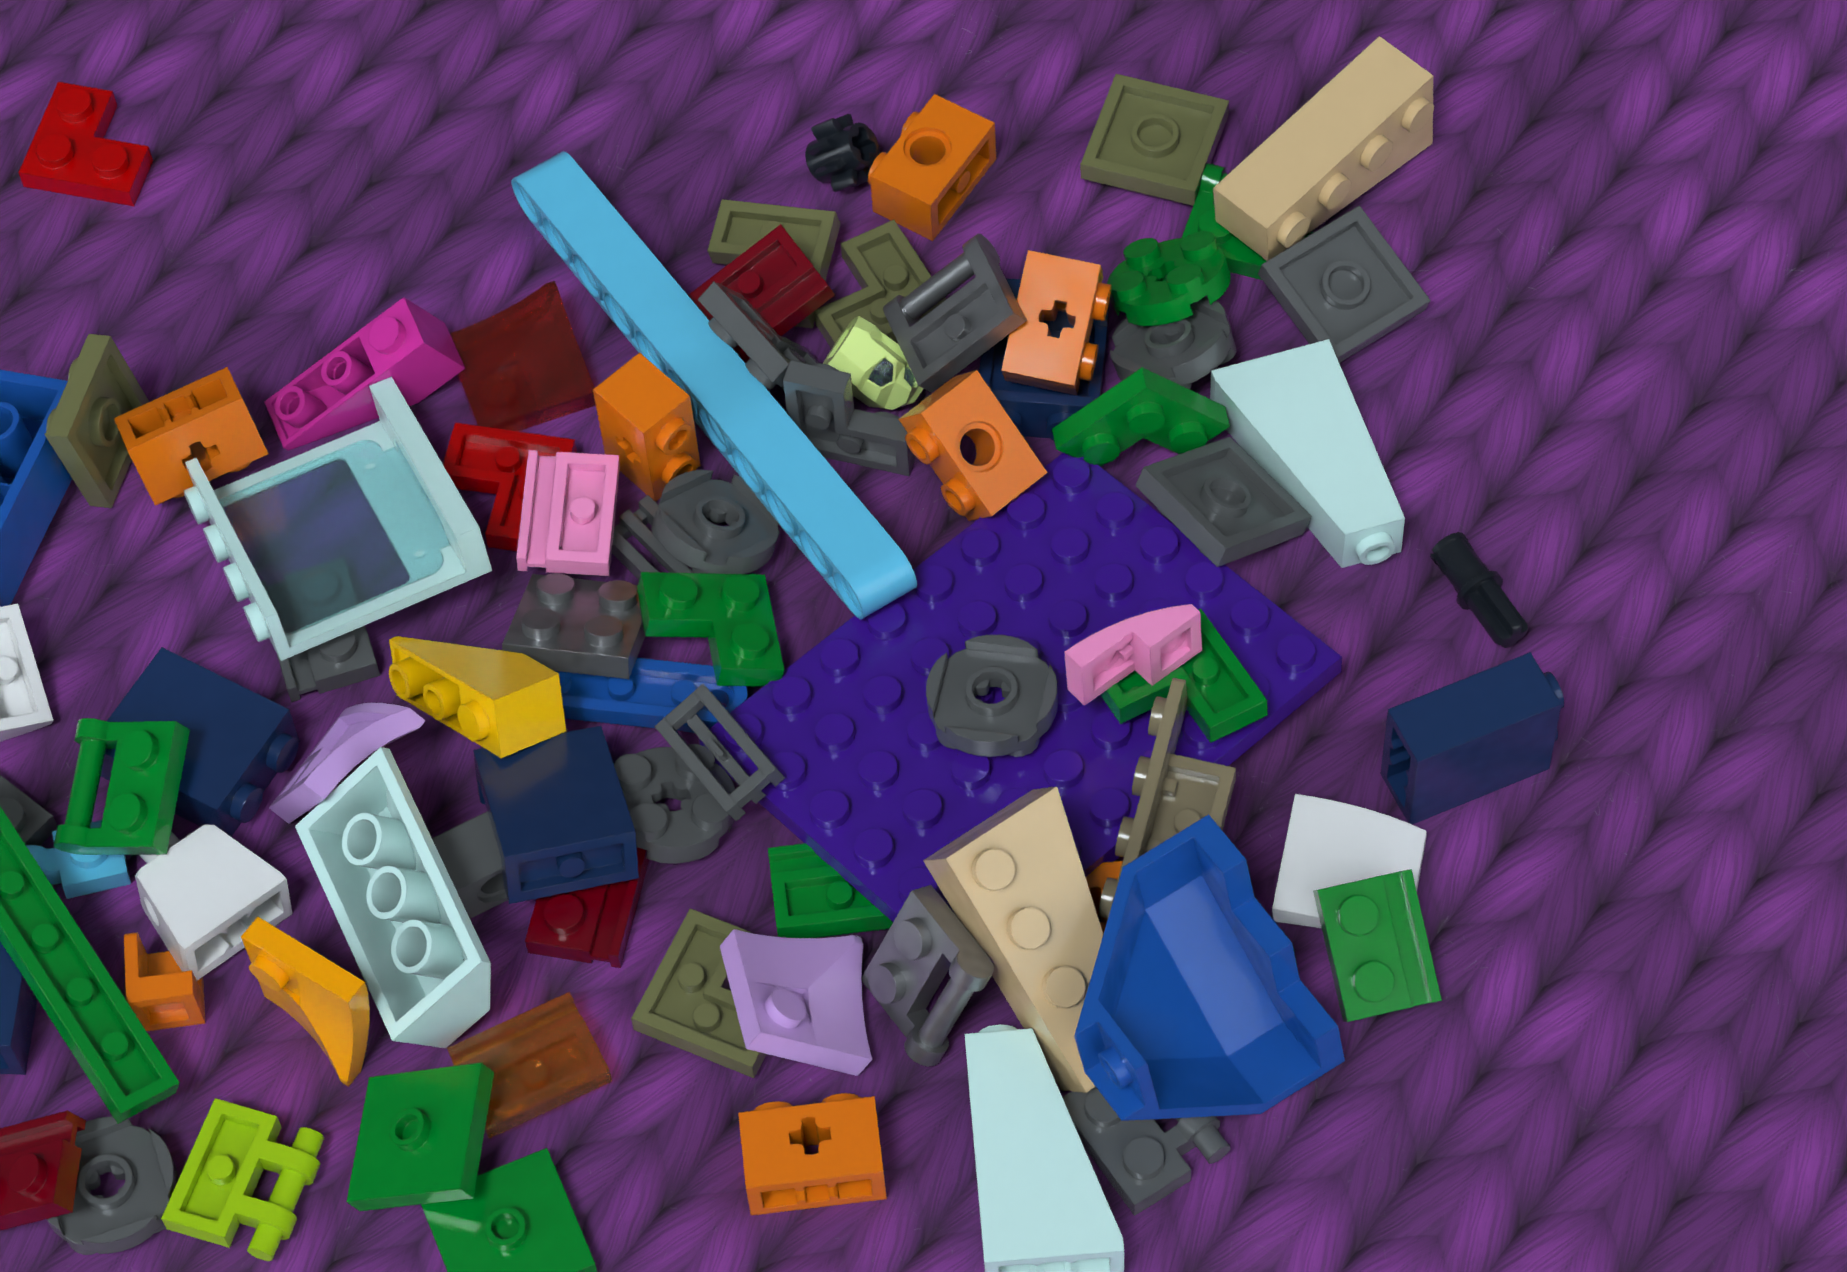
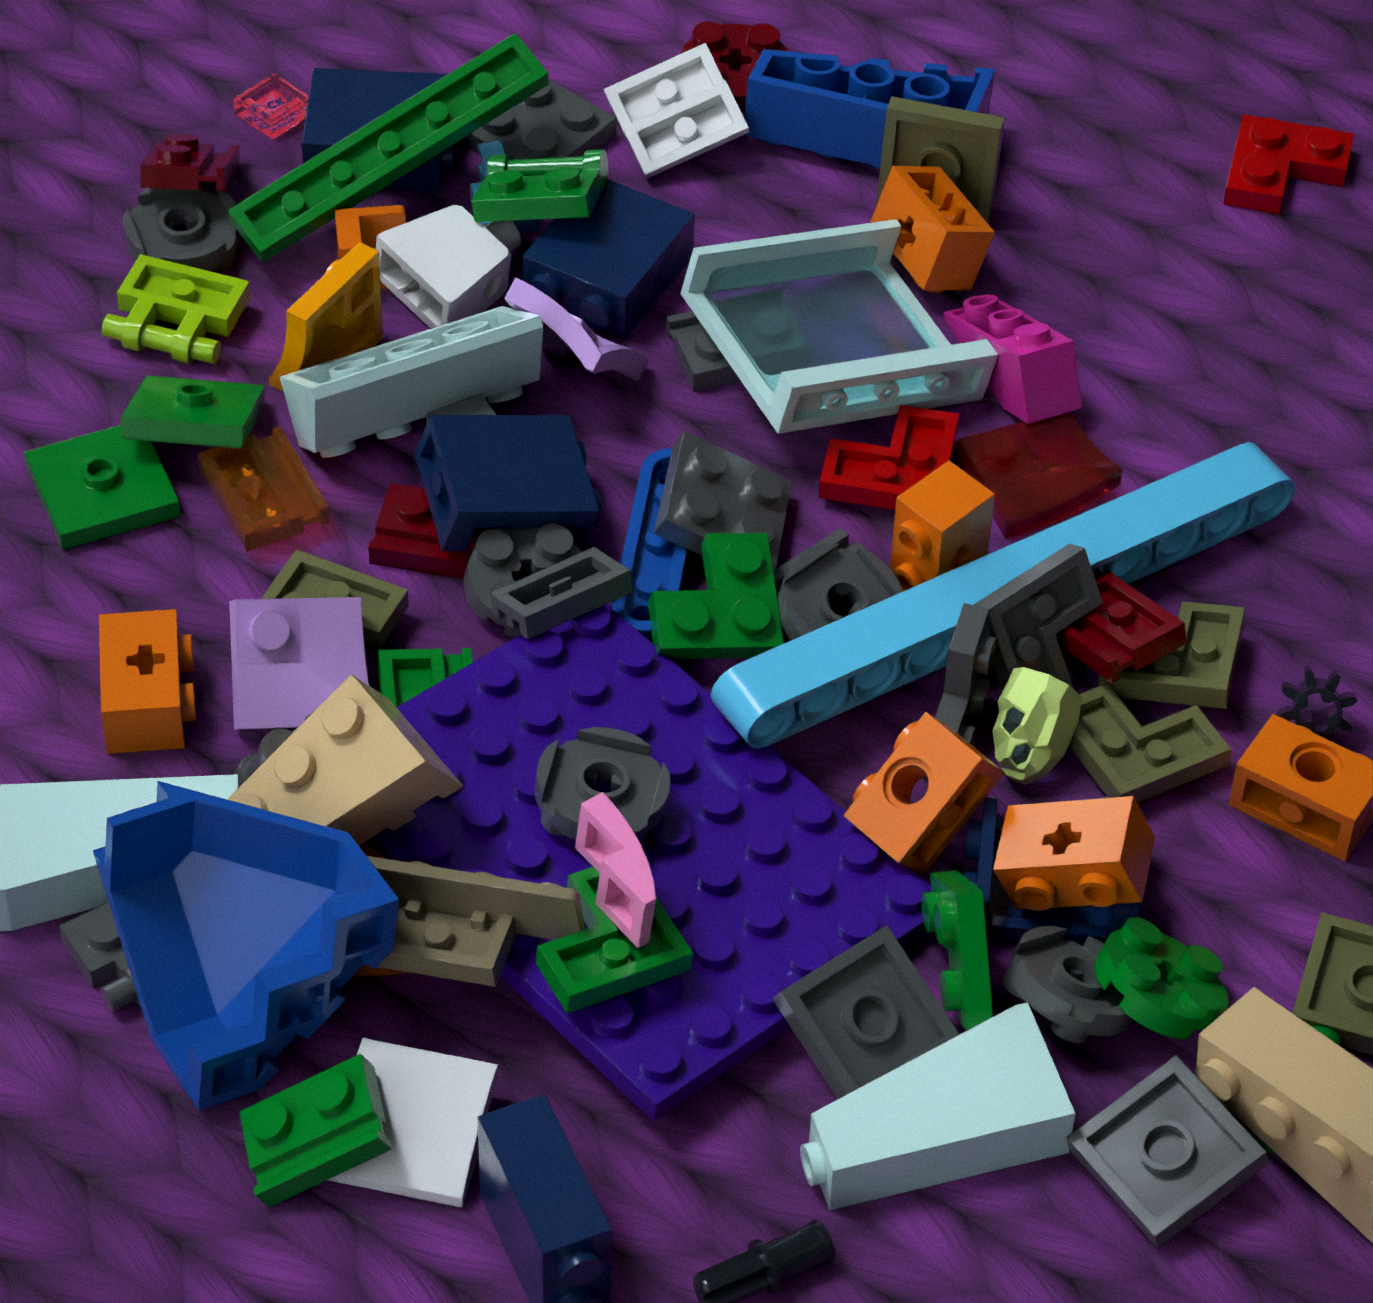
camera: 85 degrees right, 10 degrees down
(481, 693) = (624, 422): yellow slope -> none
(568, 513) = (842, 487): bright pink plate -> none
(963, 323) = (1077, 763): flat silver plate -> none

